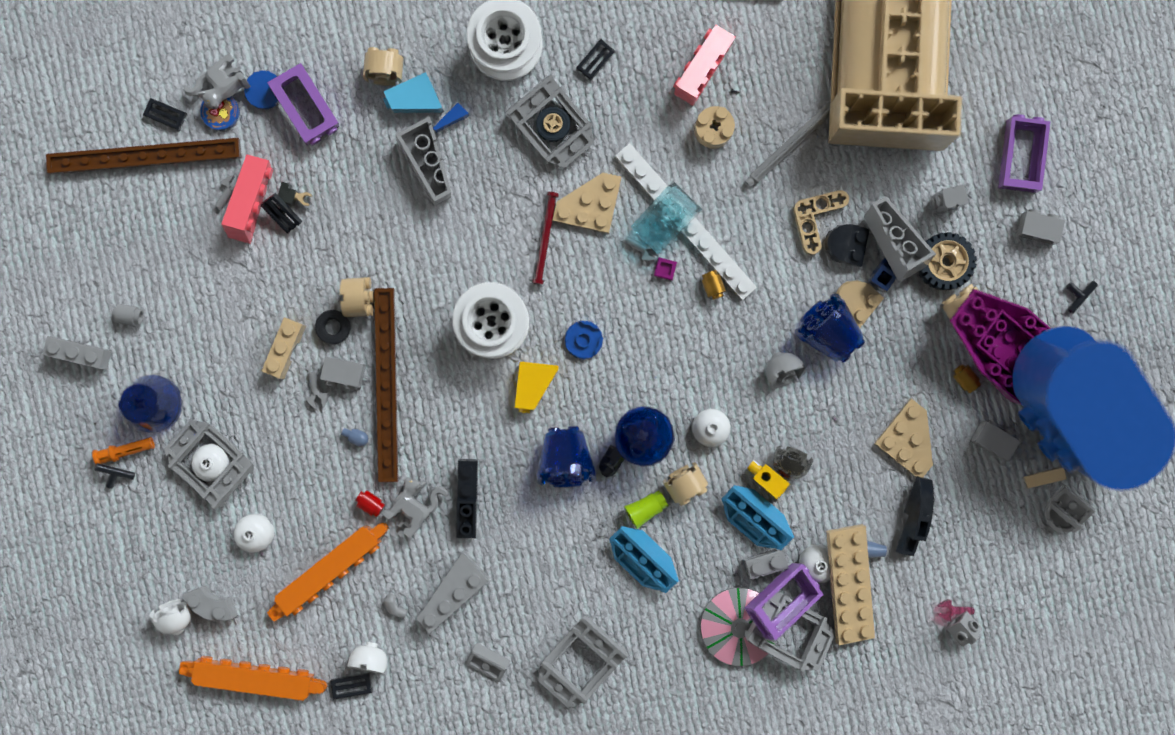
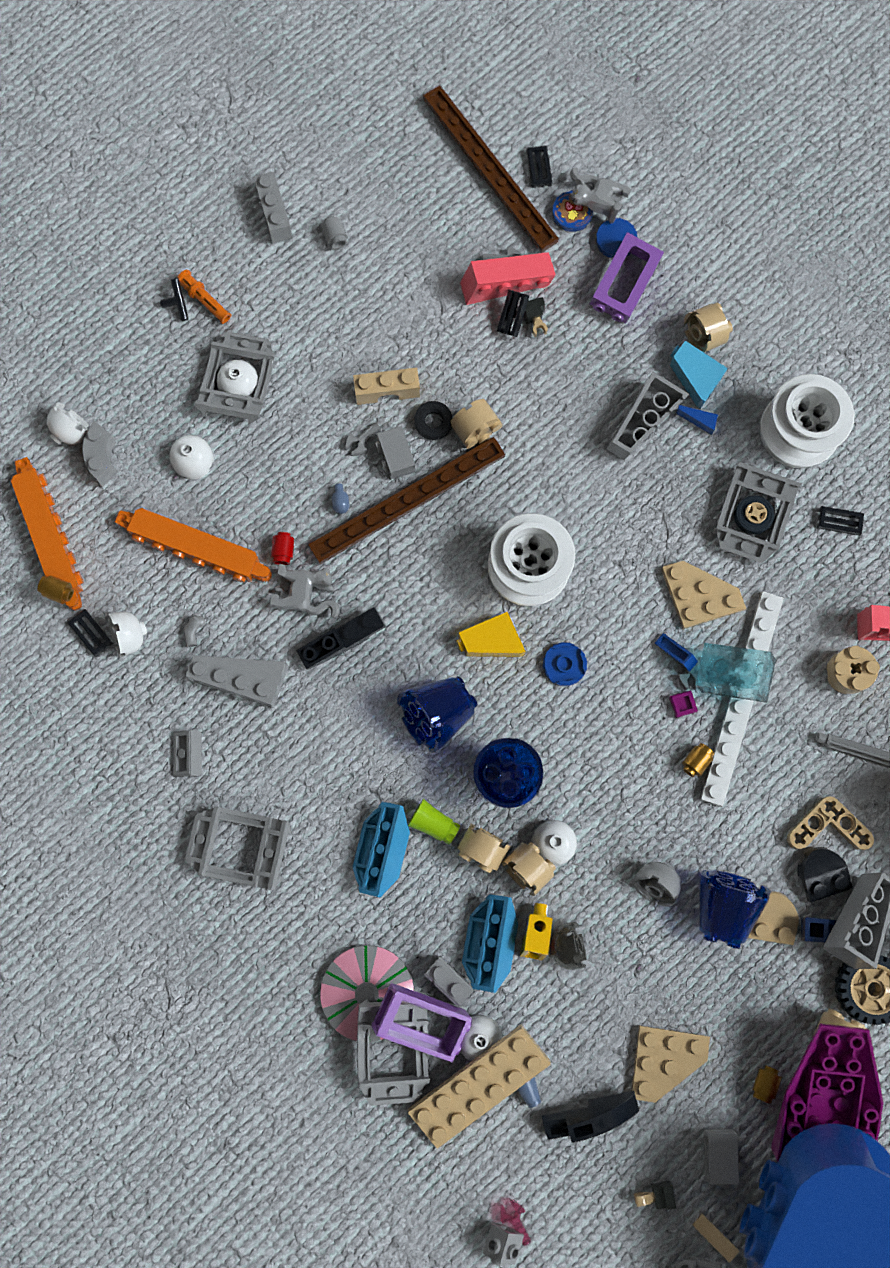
camera: 55 degrees right, 10 degrees down
(151, 403) = (262, 295): clear blue cone -> none
(304, 696) = (55, 589): none -> pearl gold brick
(545, 238) = (684, 554): dark red bar -> none
(610, 462) = (460, 760): black rock -> none
(623, 250) = (676, 652): none -> blue piece
(719, 458) = (529, 868): none -> tan brick
(996, 498) = (661, 1195): none -> pearl dark grey piece

